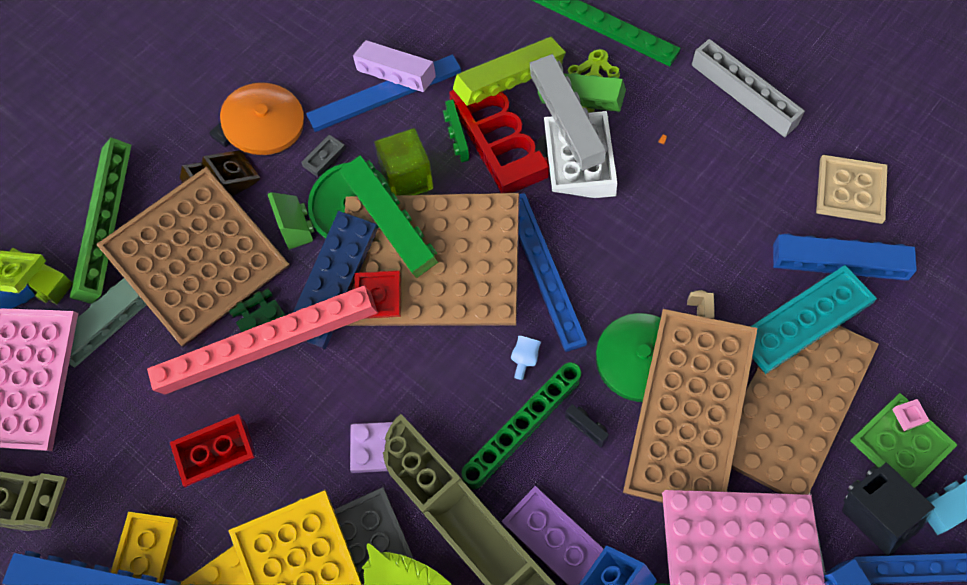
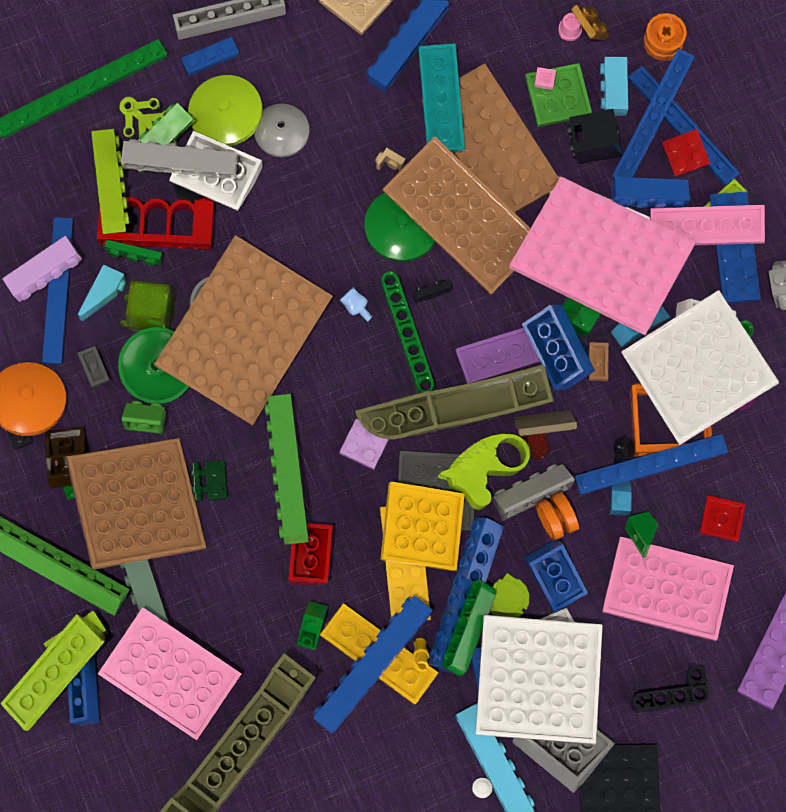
camera: 70 degrees left, 10 degrees up
(137, 497) = (312, 625): none -> green slope
(262, 340) = (244, 480): coral brick -> none
(294, 378) = (287, 469): none -> bright green brick
(337, 264) = (217, 409): dark blue plate -> none
(385, 290) = (254, 380): red plate -> none
(389, 217) = (197, 339): green brick -> none
(399, 121) = (104, 289): none -> medium azure slope
(548, 279) = (305, 254): blue plate -> none
(650, 135) = (226, 109): none -> lime dish
(665, 203) = (285, 140): none -> light grey dish
(695, 97) = (210, 56): none -> blue plate

